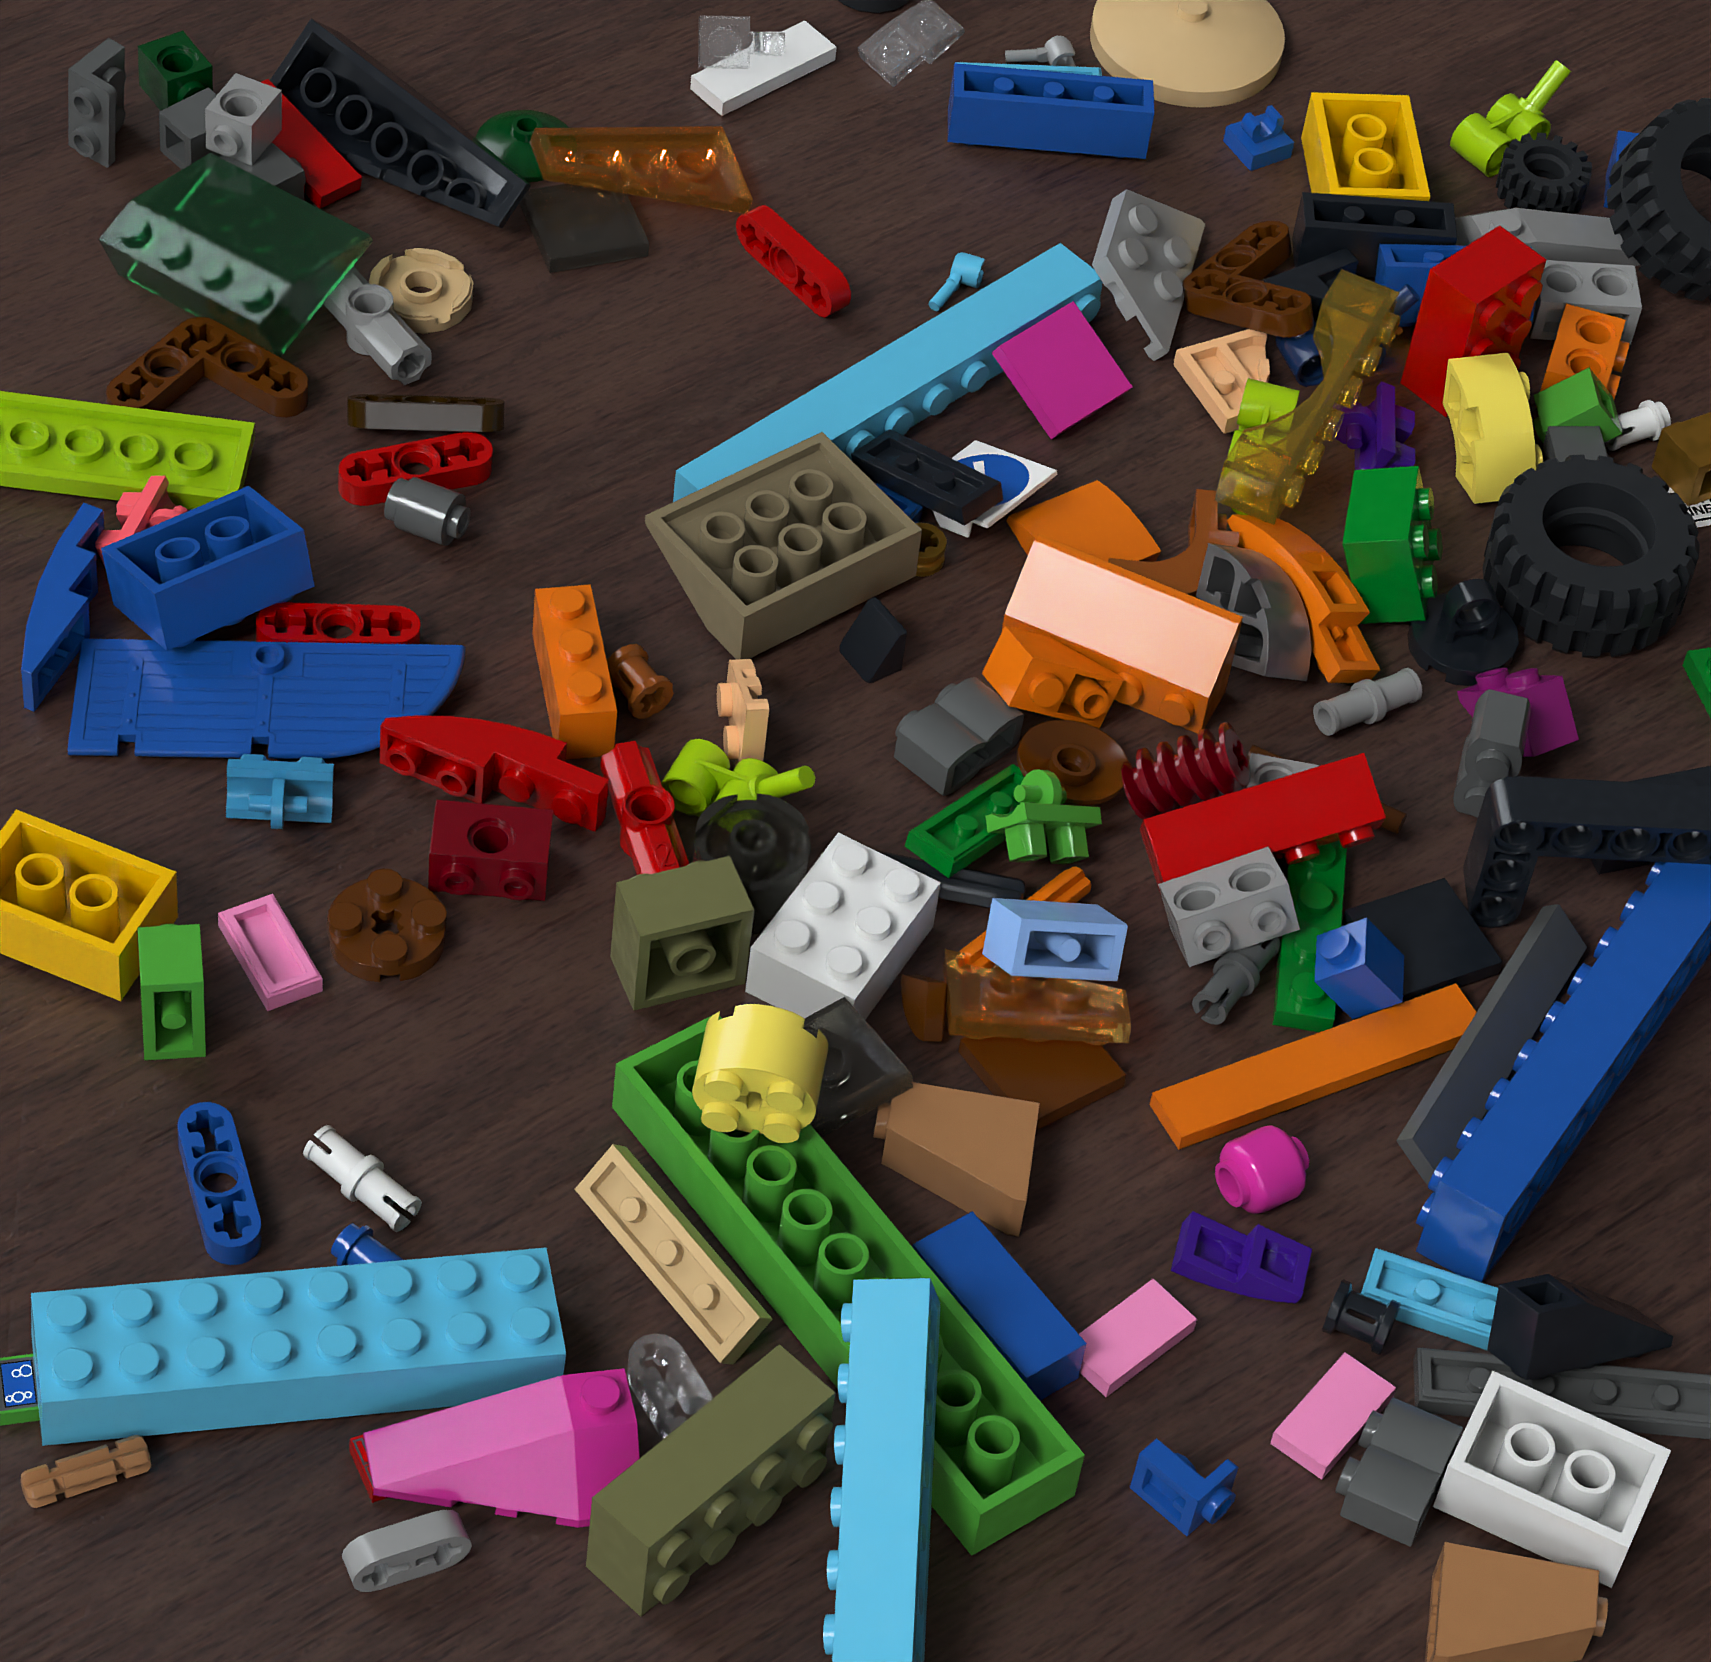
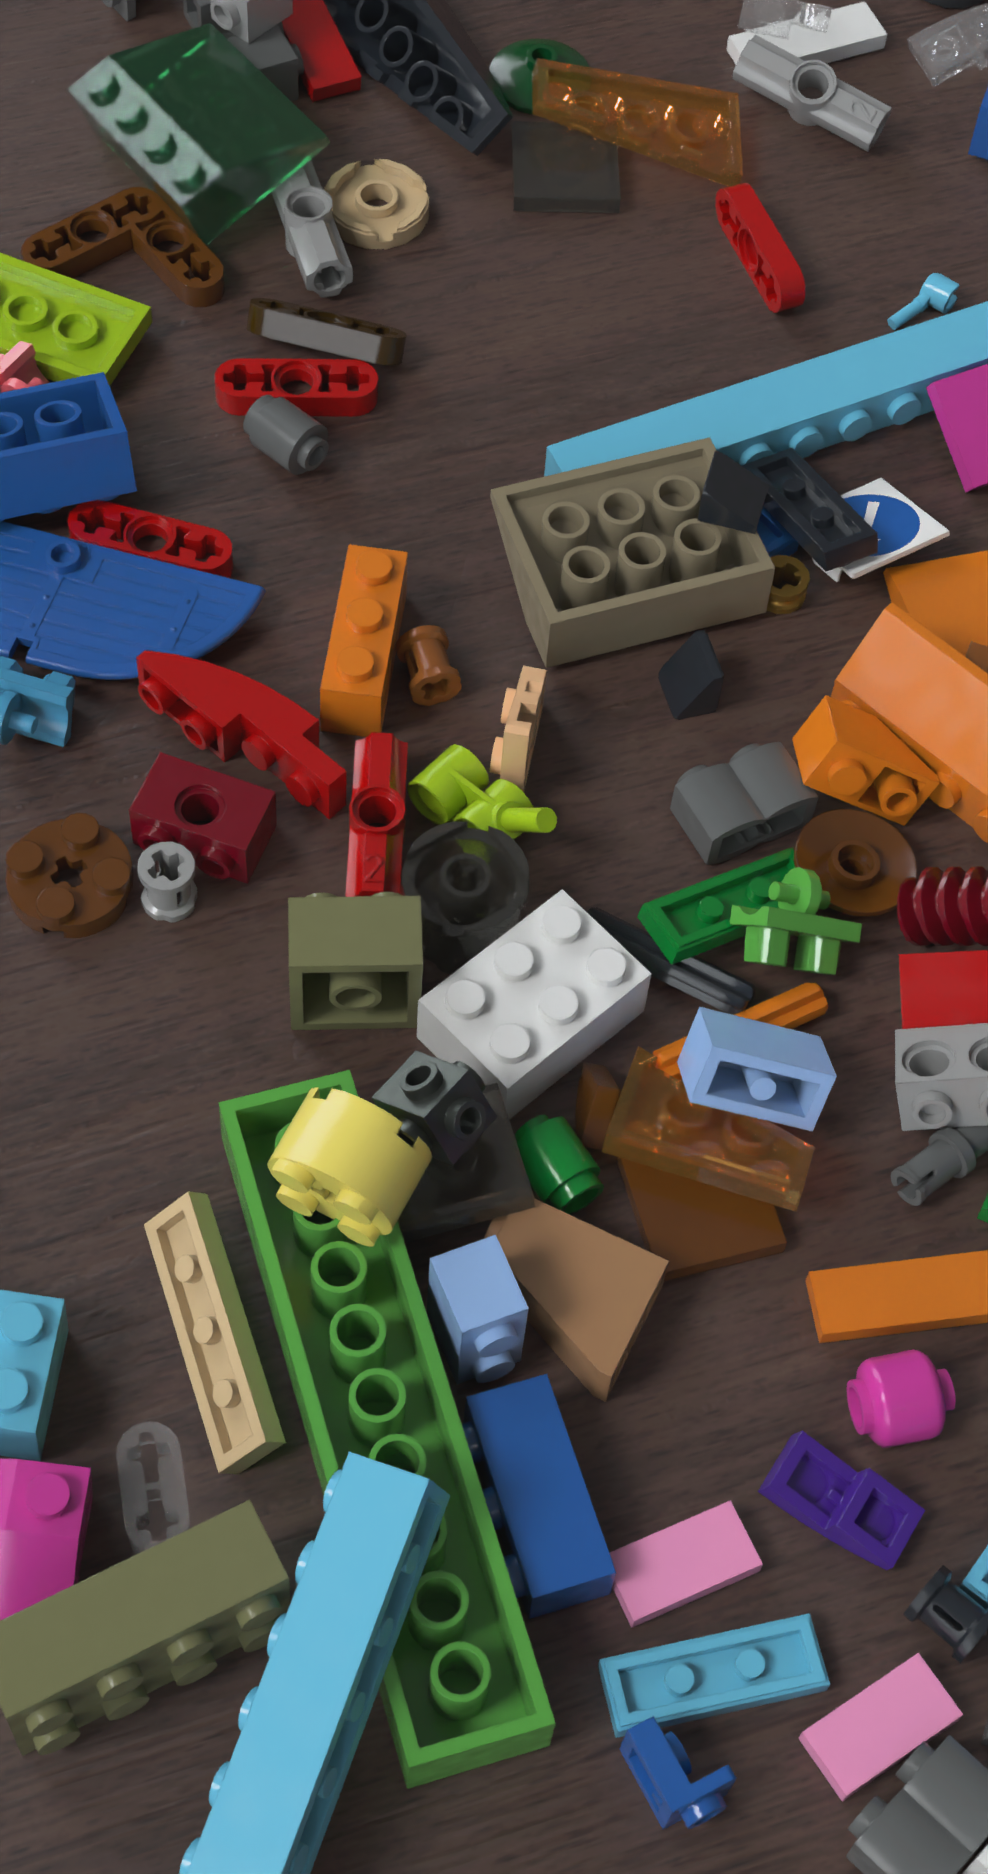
camera: 20 degrees right, 10 degrees up
(481, 903) = (174, 876): none -> light grey bush
(759, 104) = (782, 76): none -> light grey piece
(823, 1005) = (438, 1104): none -> pearl dark grey brick
(864, 476) = (732, 495): none -> black slope
(900, 1169) = (477, 1311): none -> light blue brick
(918, 1051) = (558, 1164): none -> green brick
(1187, 1410) = (714, 1674): none -> medium azure tile

